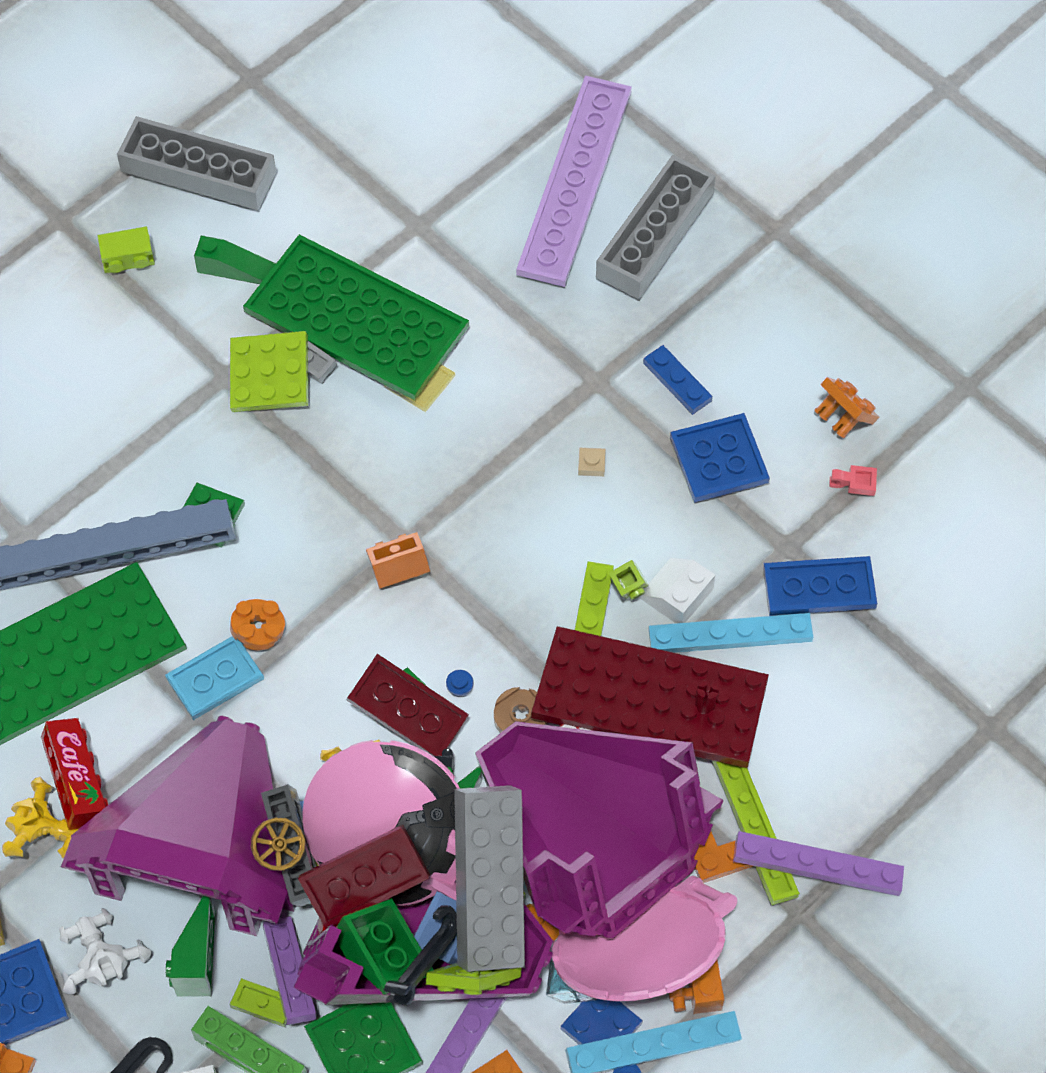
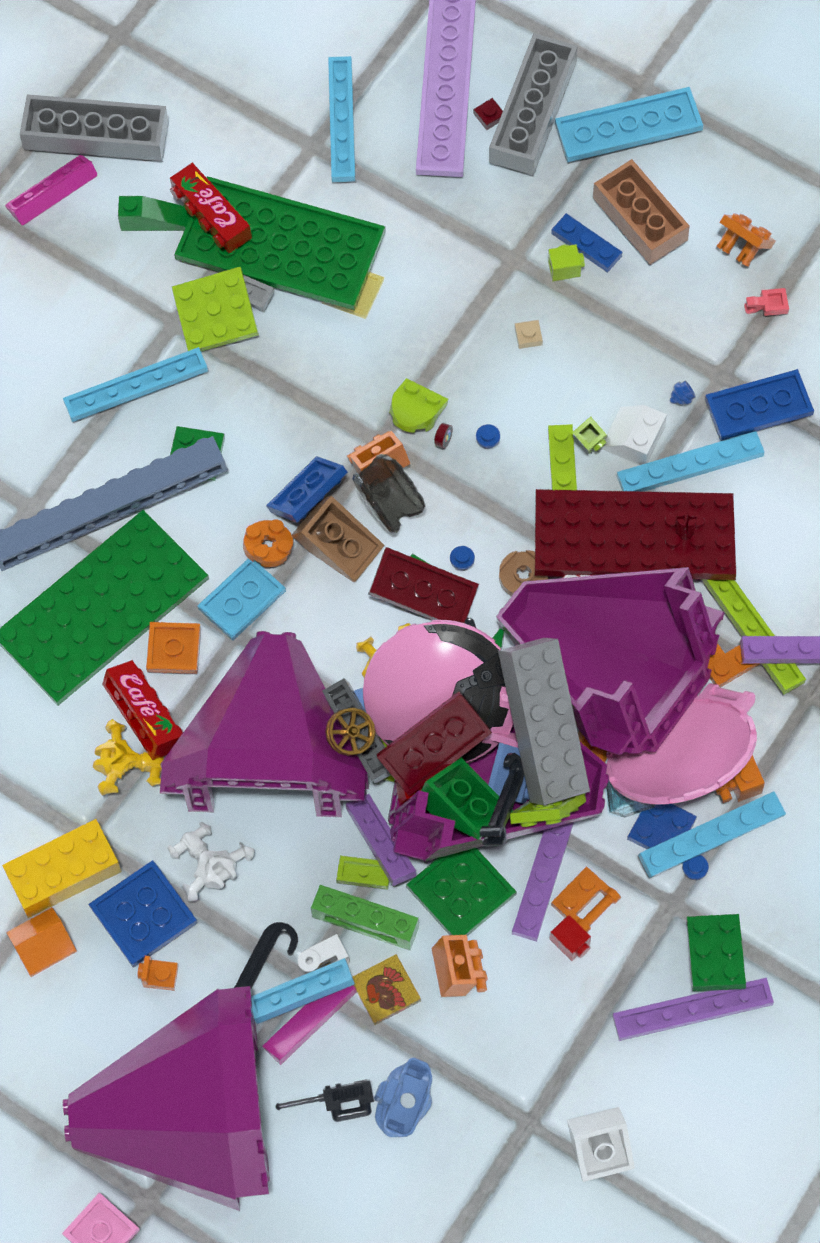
camera: 10 degrees left, 5 degrees up
(126, 249) = (50, 223): lime brick -> none
(127, 714) = (173, 647): none -> orange plate
(145, 213) = (51, 189): none -> dark pink slope
(165, 431) = (135, 384): none -> medium azure plate
(193, 954) = (295, 853): green slope -> none
(291, 266) = (210, 208): none -> red brick
(313, 575) = (307, 489): none -> blue plate
(332, 635) = (338, 538): none -> medium nougat slope
(395, 596) = (388, 492): none -> clear smoke animal
(452, 513) = (416, 407): none -> lime slope
(453, 204) = (341, 119): none -> medium azure plate
(473, 549) = (443, 435): none -> dark red tile
(520, 559) = (488, 436): none -> blue plate
(607, 227) = (488, 113): none -> dark red plate
(649, 395) = (565, 262): none -> lime brick
(719, 457) = (642, 306): blue plate -> none
(740, 557) = (682, 393): none -> blue plate
(741, 358) = (641, 211): none -> nougat brick
(752, 267) = (628, 124): none -> medium azure plate

